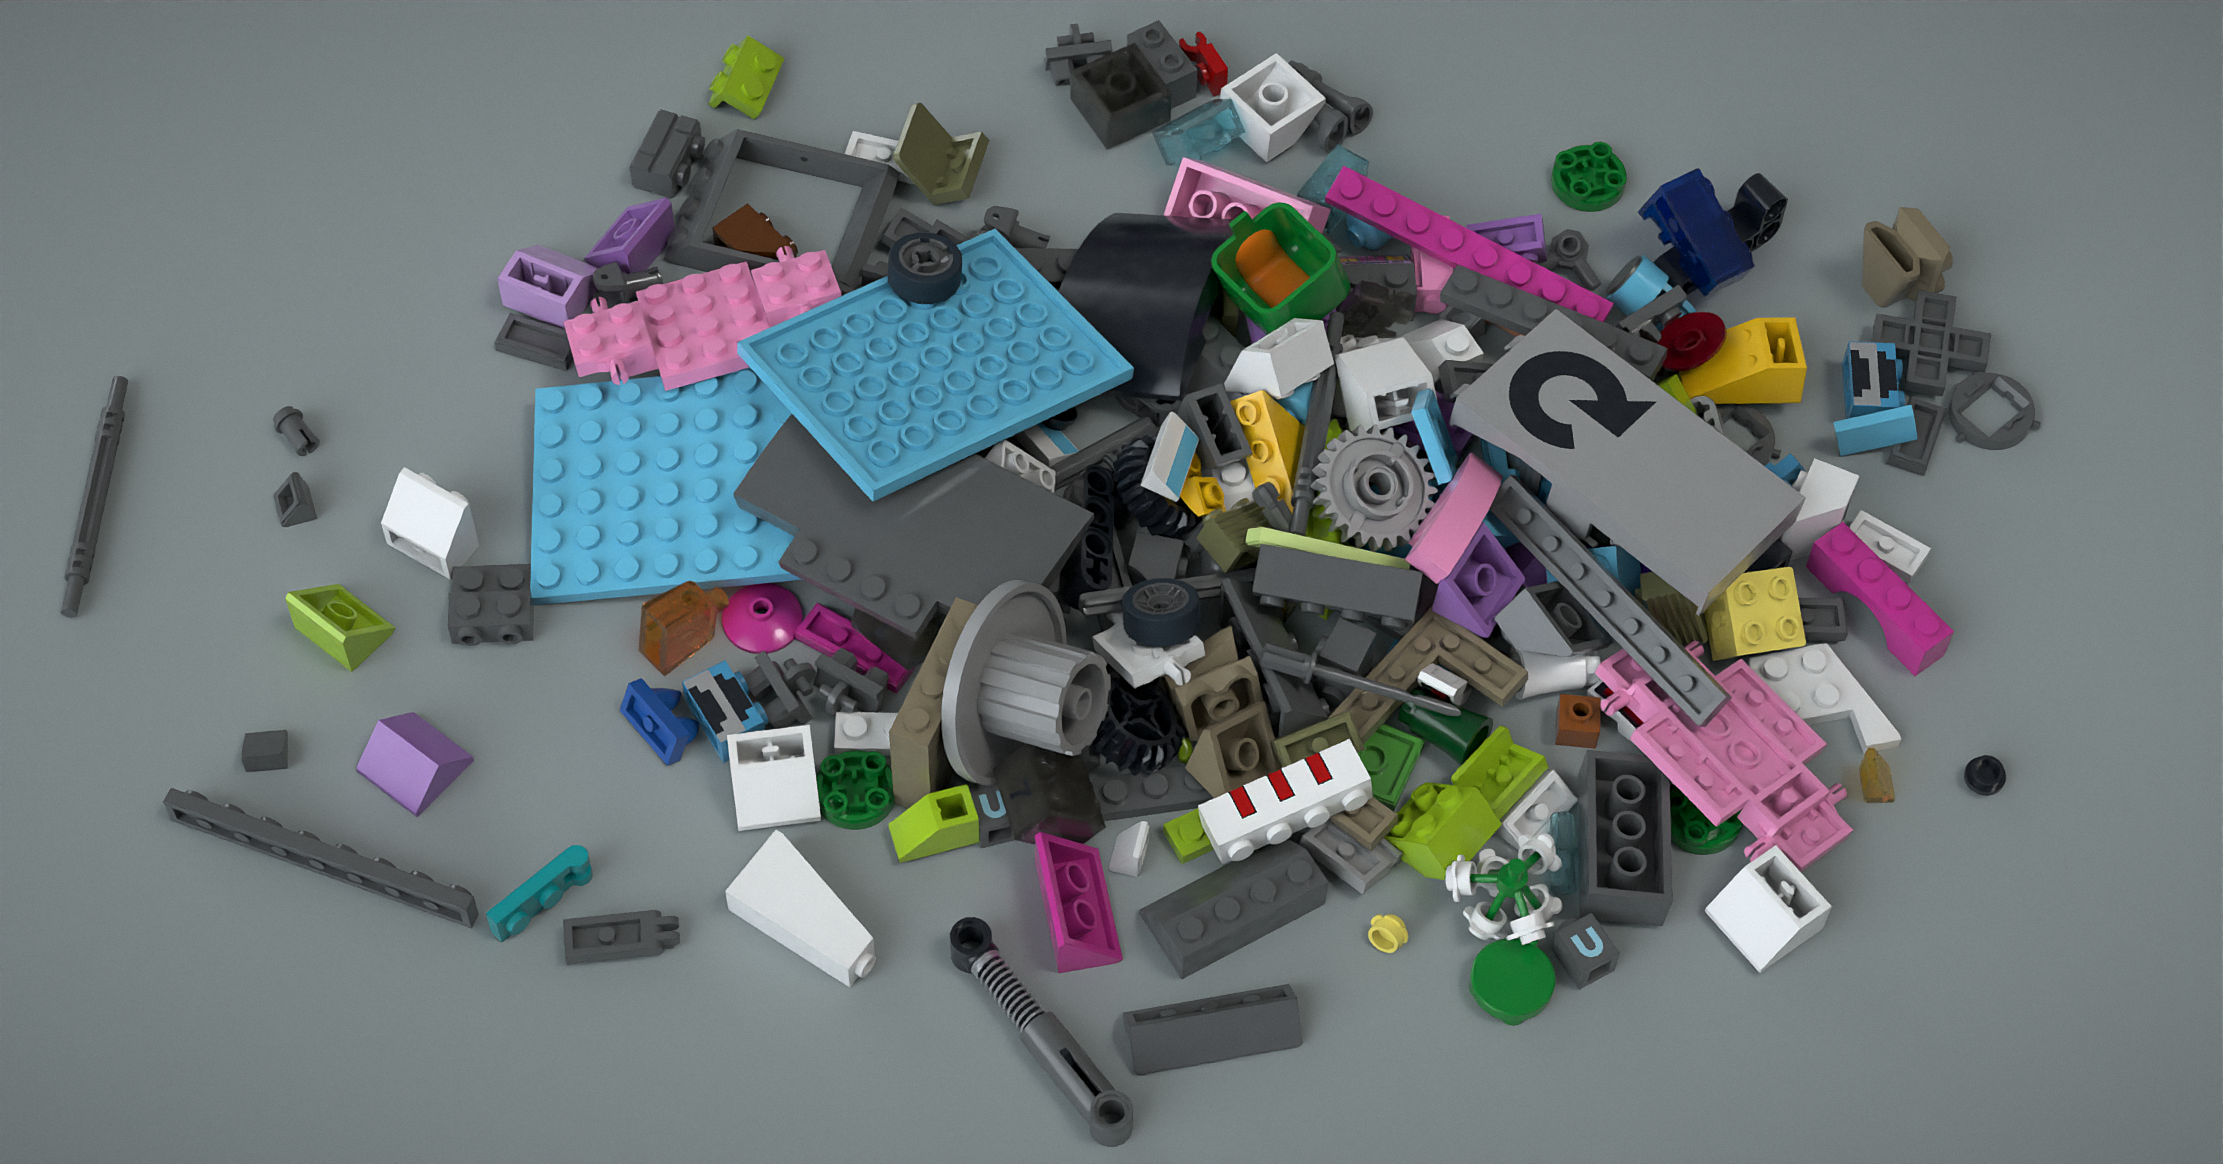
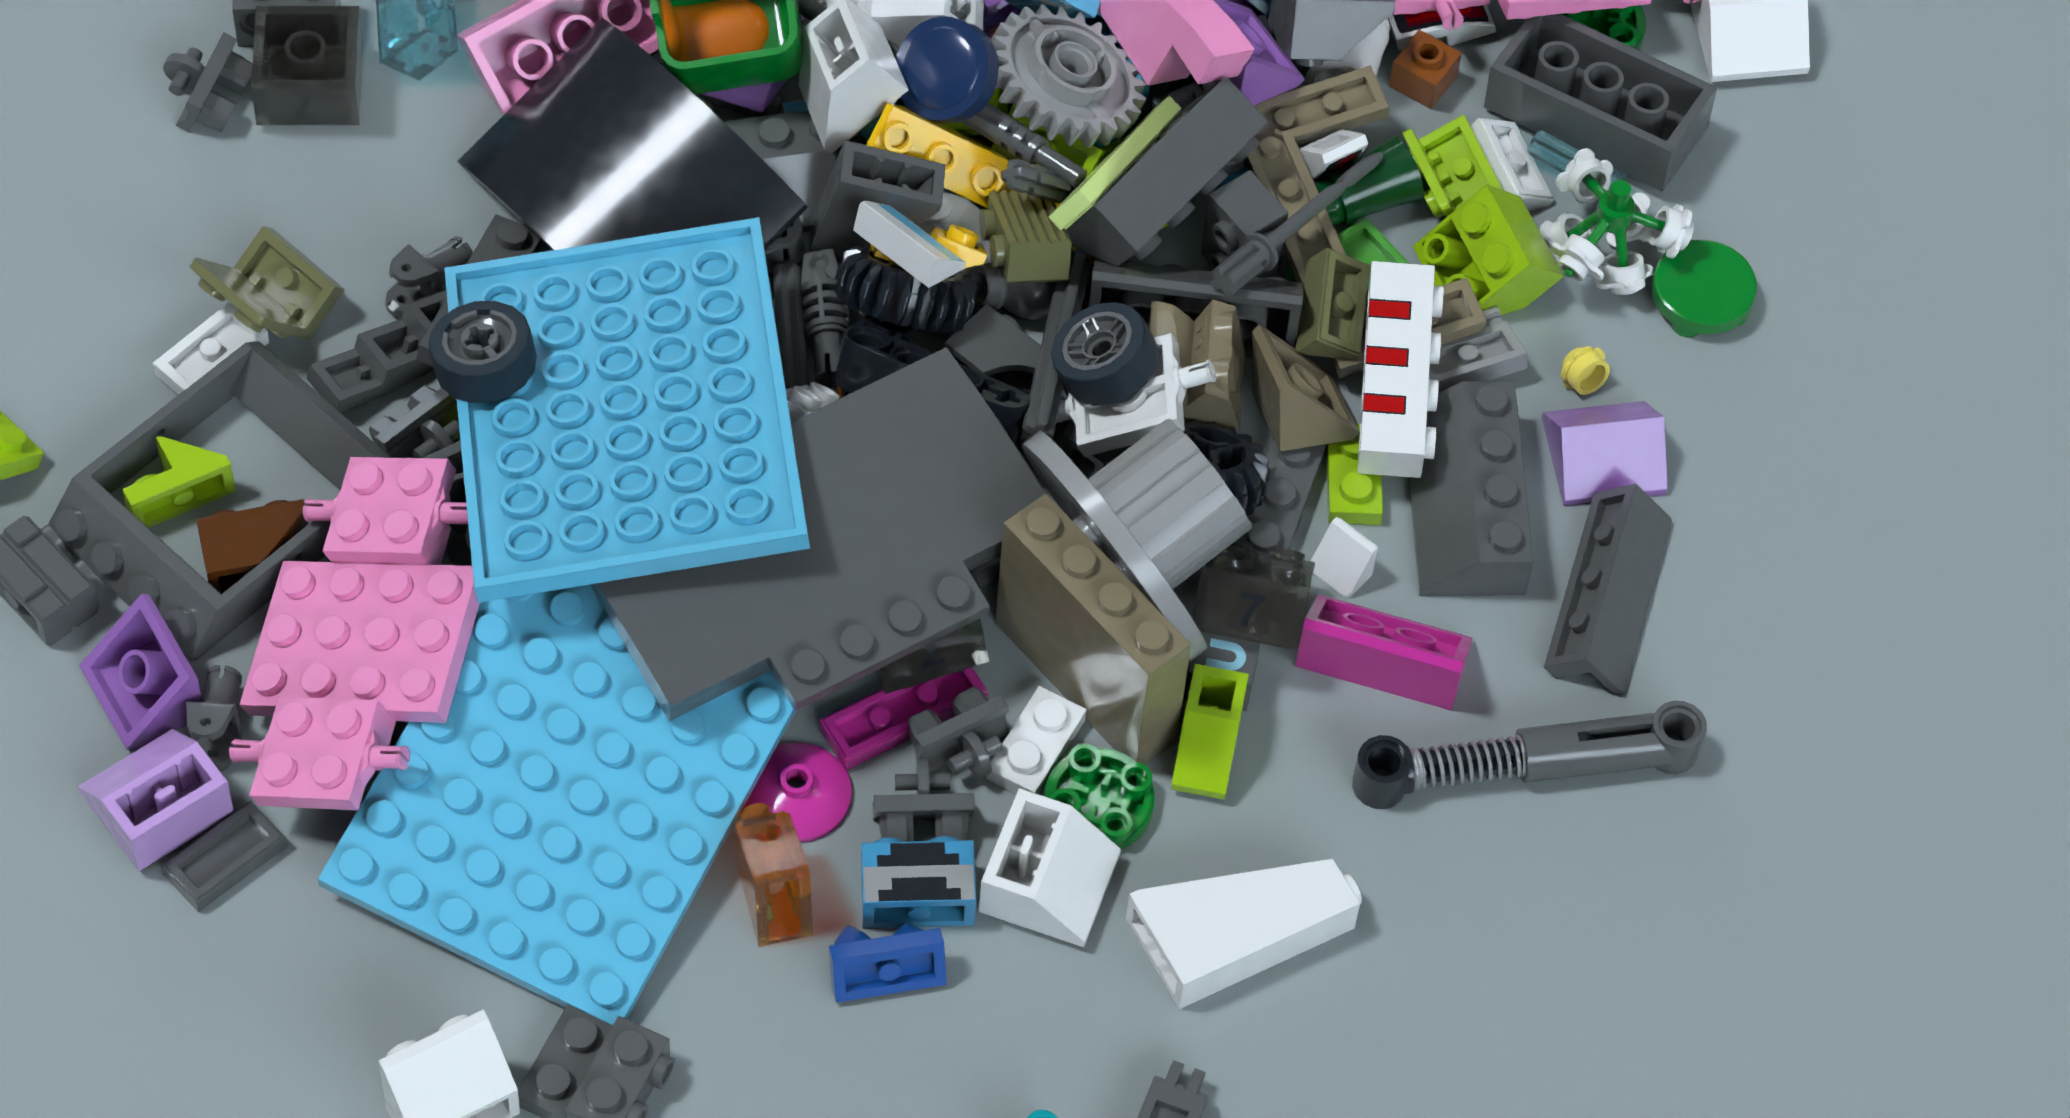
camera: 65 degrees left, 0 degrees up
(776, 190) = (188, 481): none -> lime slope
(1318, 413) = (947, 69): none -> dark blue piece
(1330, 975) = (1607, 449): none -> slope
(1584, 950) = (1713, 198): dark grey brick -> none

